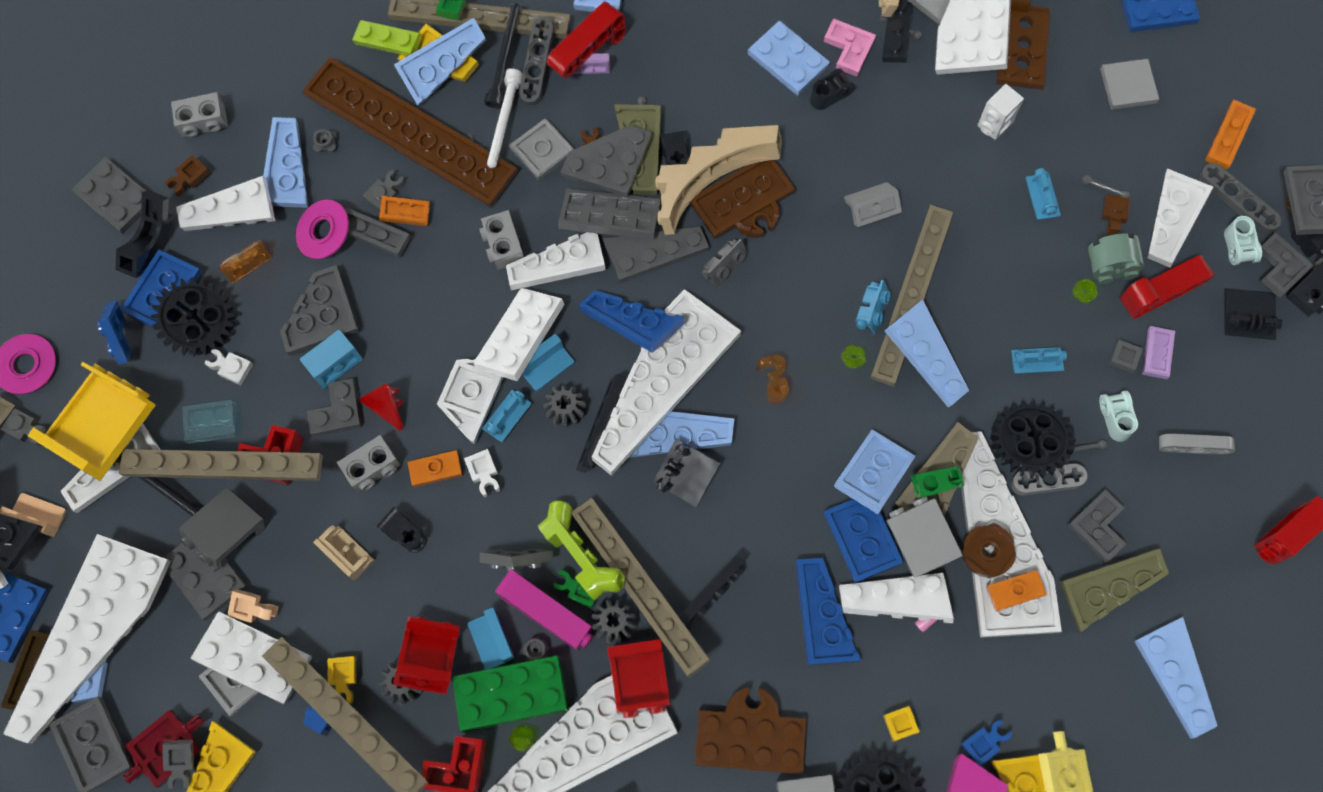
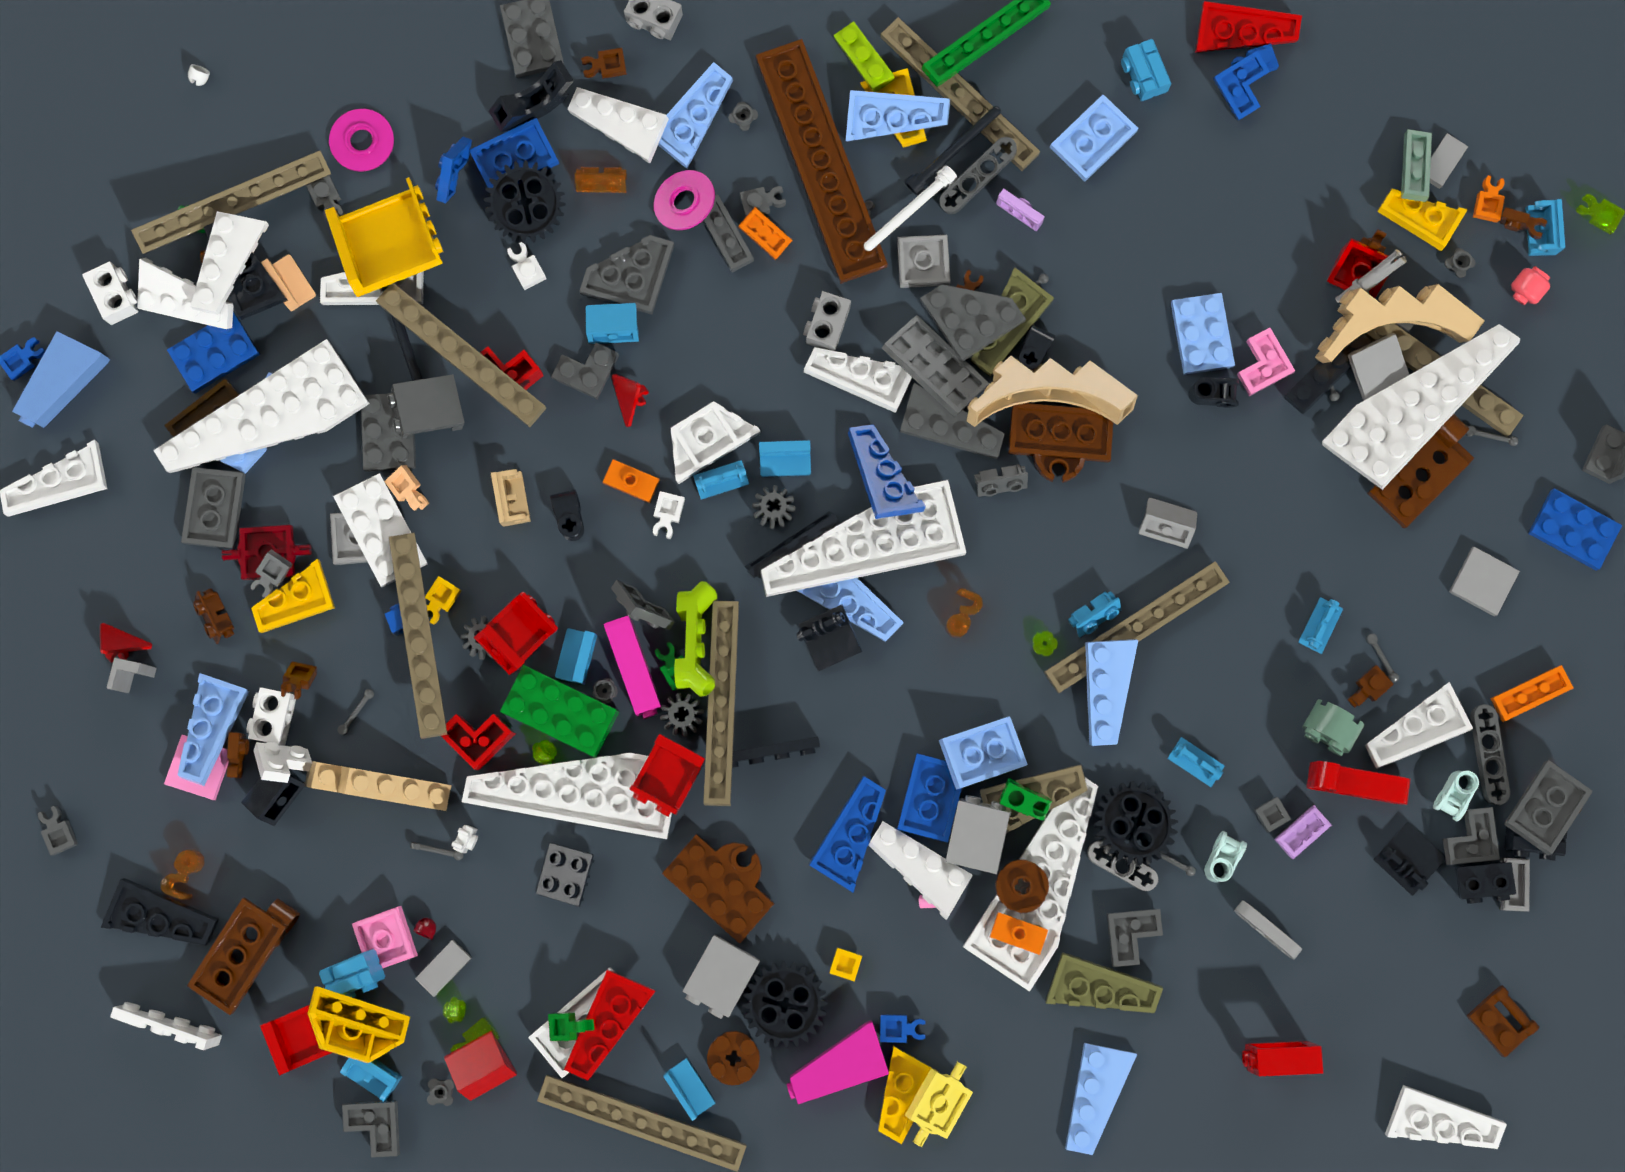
camera: 30 degrees right, 10 degrees up
(209, 421) = (477, 304): clear light blue plate -> none
(366, 458) = (582, 432): light grey brick -> none
(519, 334) = (780, 418): white plate -> none
(601, 25) = (1034, 190): red beam -> none
(1000, 112) = (1342, 524): white brick -> none
(1087, 285) = (1292, 731): clear neon green plate -> none

